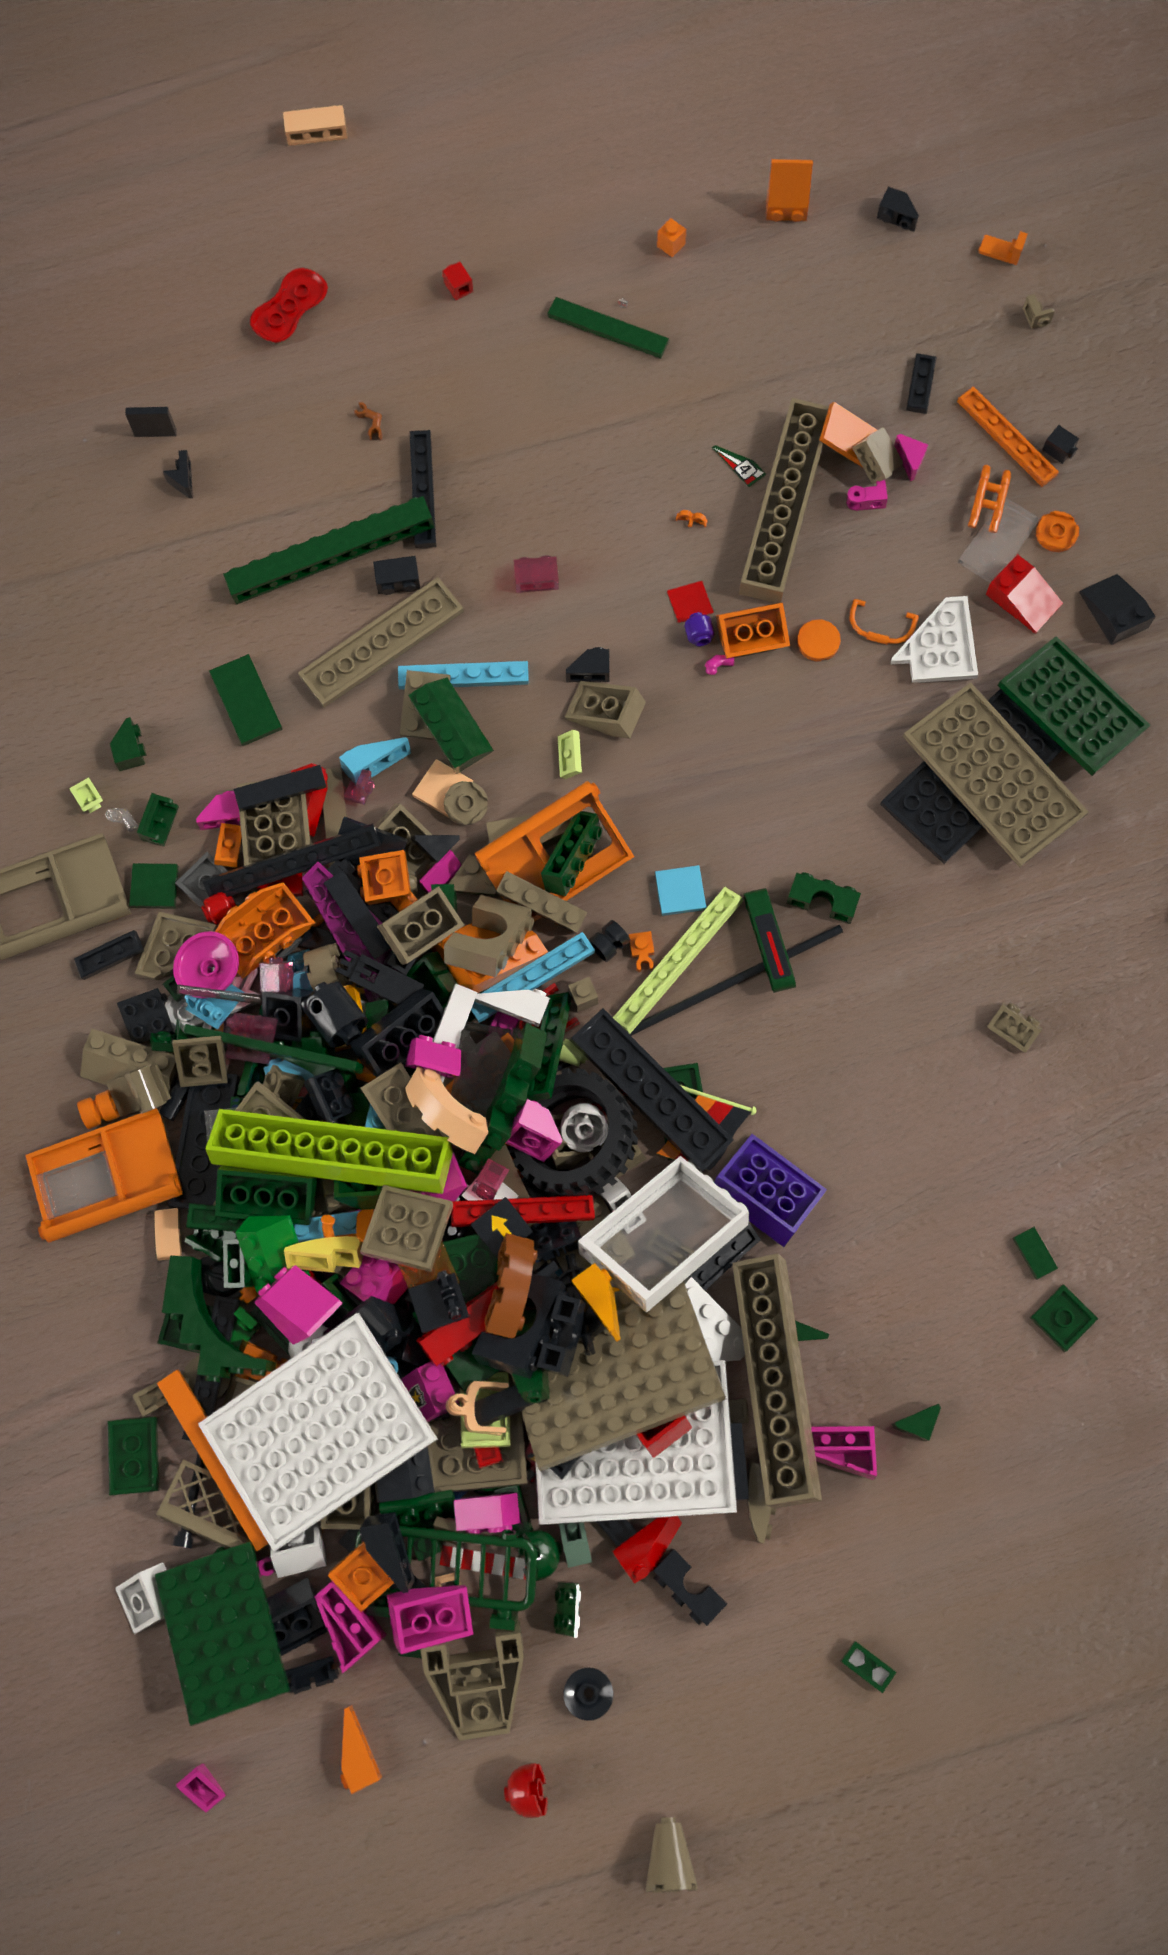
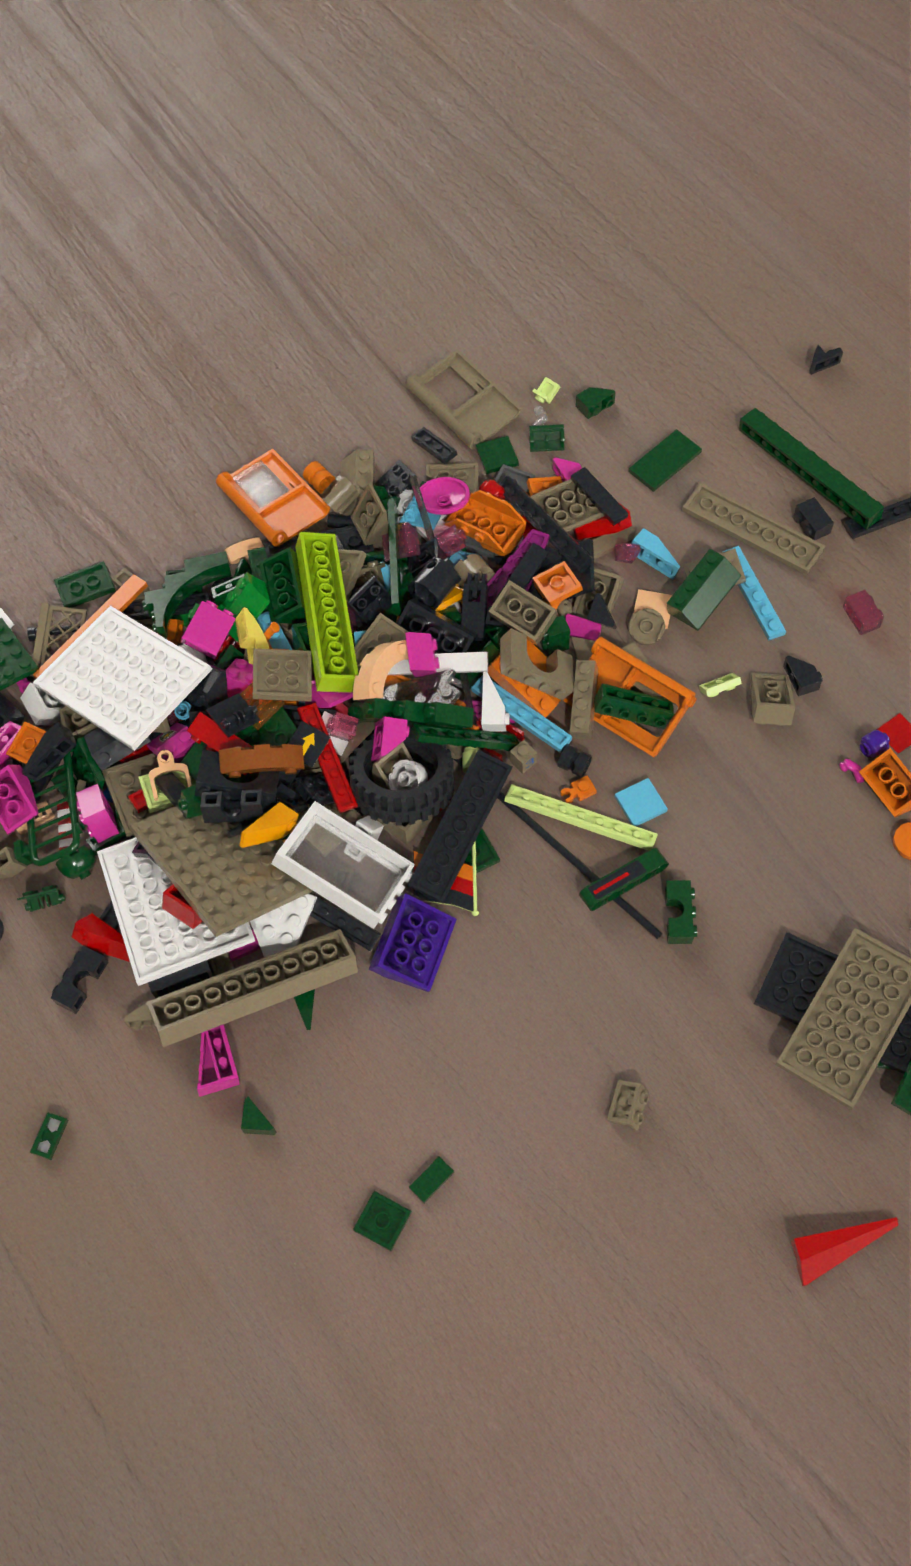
camera: 75 degrees right, 10 degrees down
(150, 421) = (853, 323): black tile -> none
(575, 1543) = (91, 886): sand green slope -> none

